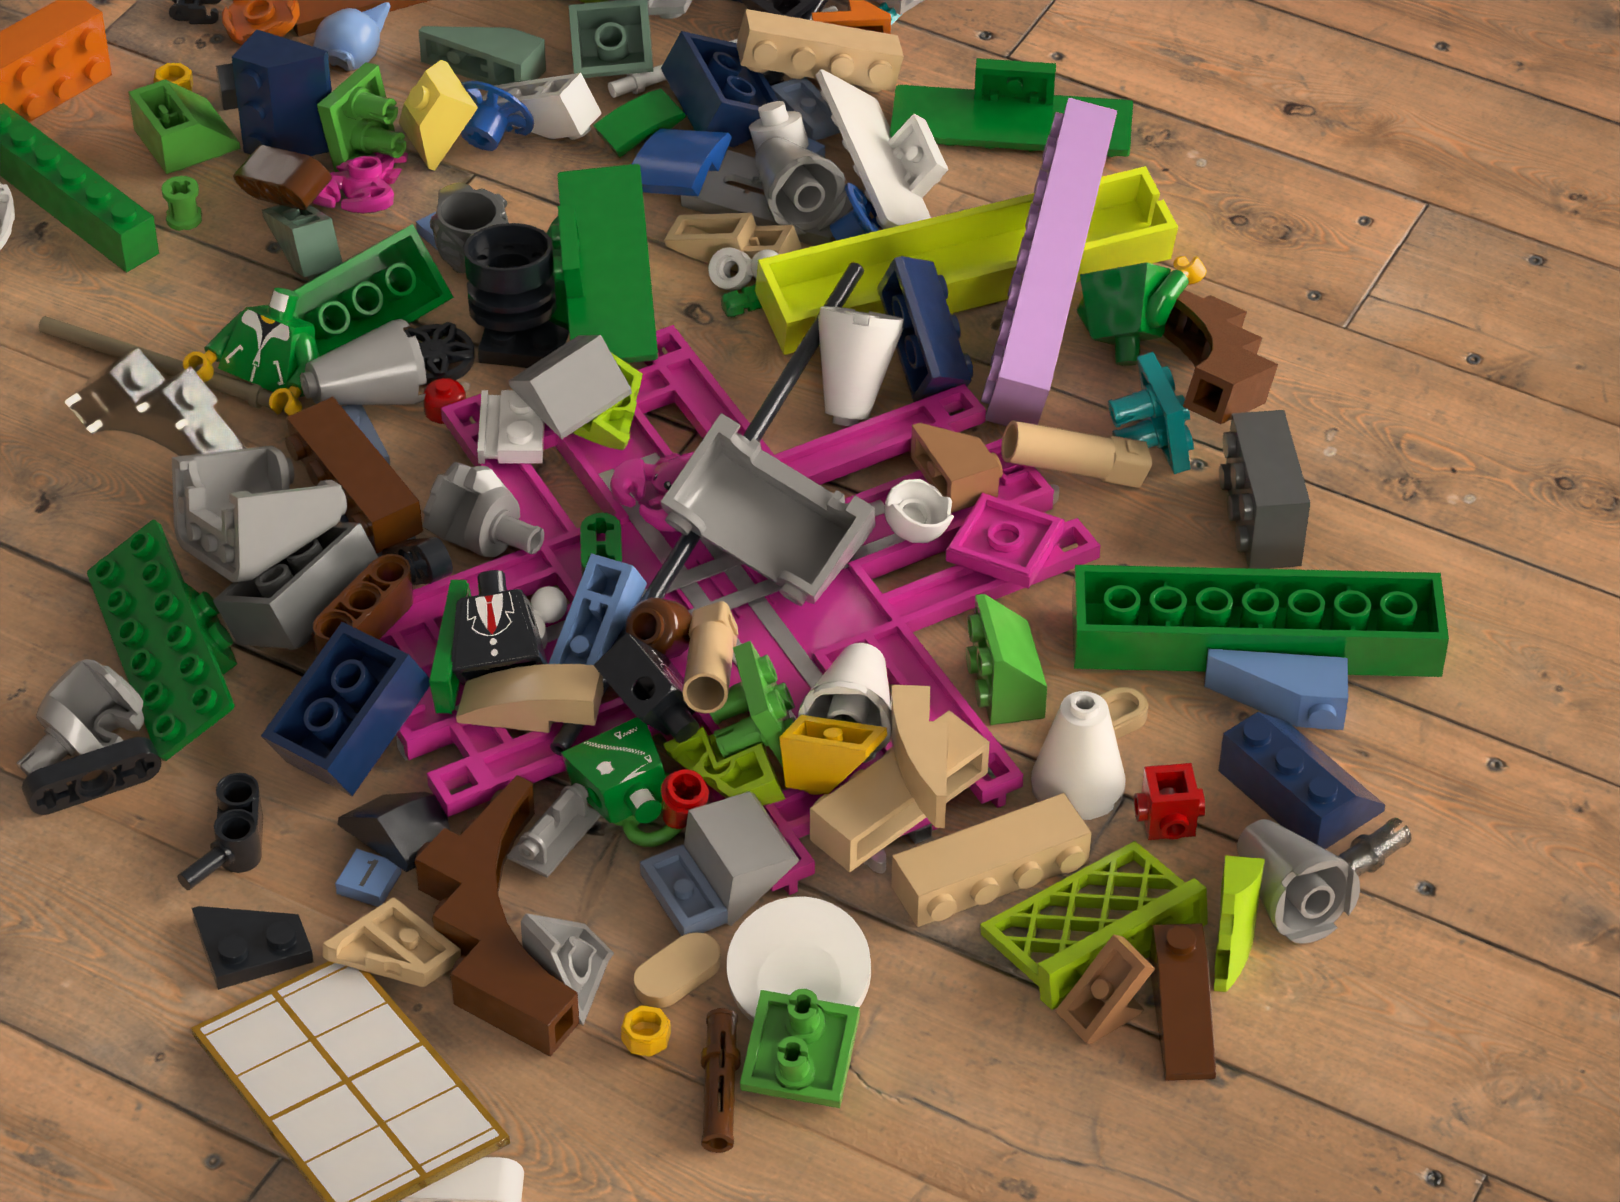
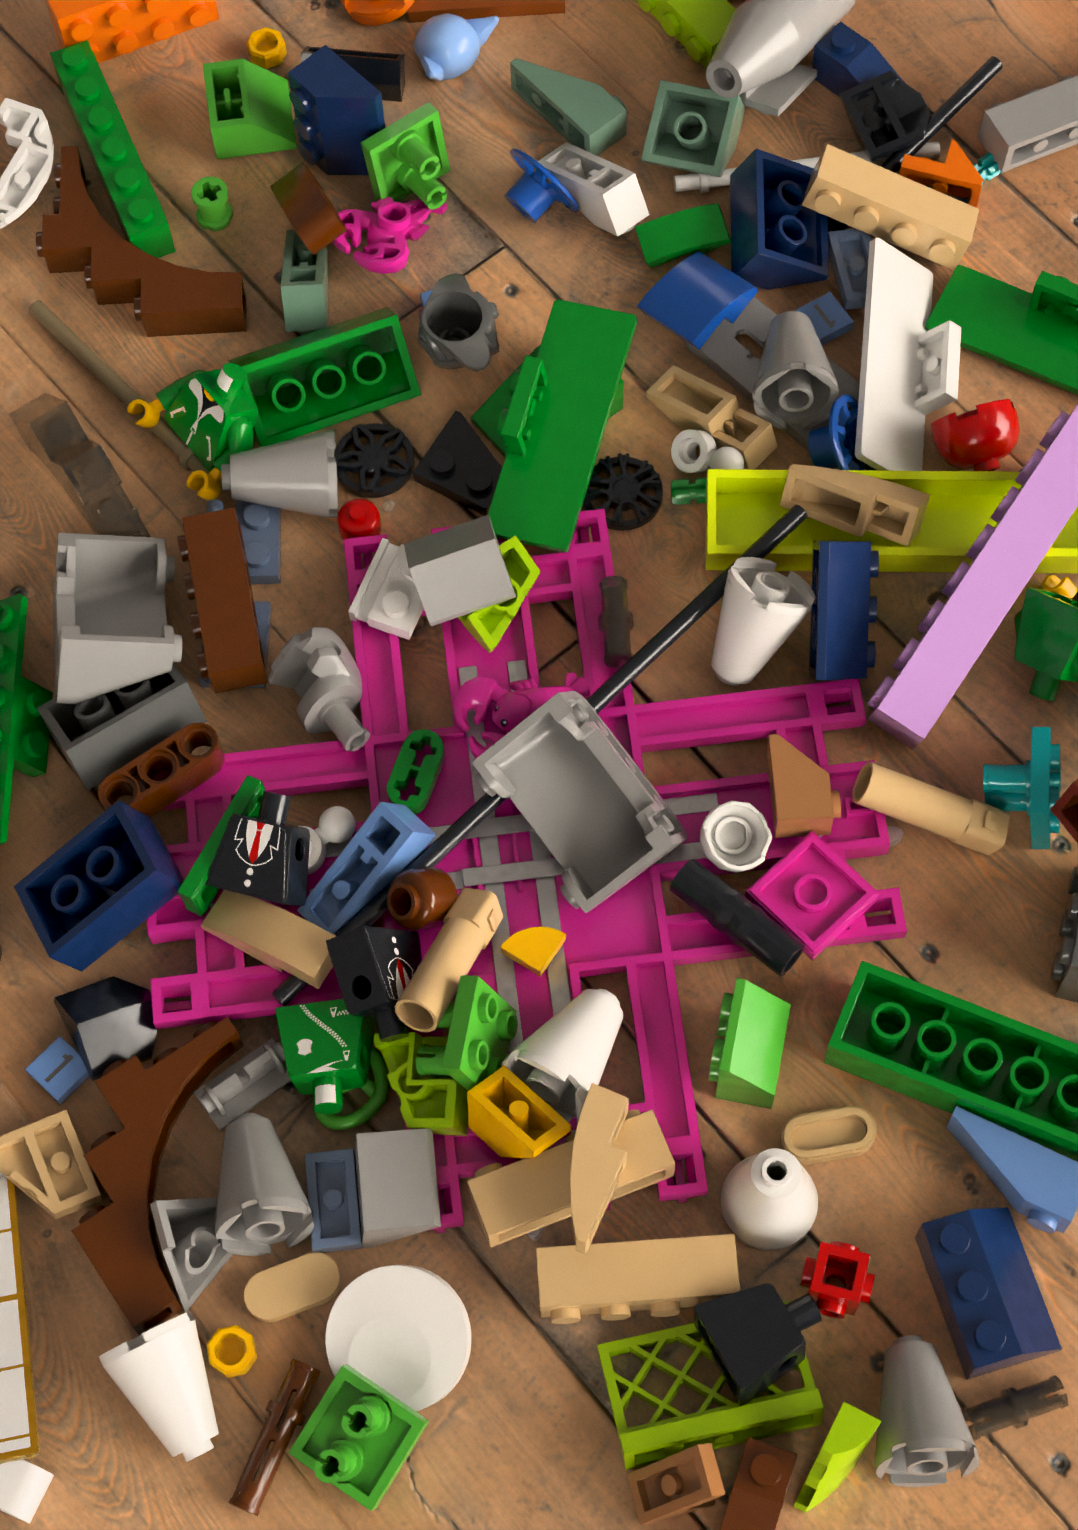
camera: 25 degrees right, 20 degrees up
(121, 273) = (164, 295): none -> reddish brown arch
(426, 557) = (238, 727): black beam -> none
(436, 113) = (484, 172): light yellow slope -> none
(510, 277) = (461, 408): black wheel -> none
(599, 1060) = (168, 1385): none -> white cone
(616, 899) = (258, 1191): none -> light grey cone
(679, 794) = (346, 1109): red cone -> none
(685, 315) = (624, 491): none -> black wheel
(728, 392) = (615, 621): none -> clear smoke pin
(779, 643) = (534, 947): none -> yellow tile
(780, 123) = (809, 293): white piece -> none
(879, 246) = (856, 502): none -> tan slope
(948, 568) = (737, 917): none -> black axle
(978, 185) = (978, 436): none -> red cylinder
(1117, 861) = (755, 1336): none -> black torso

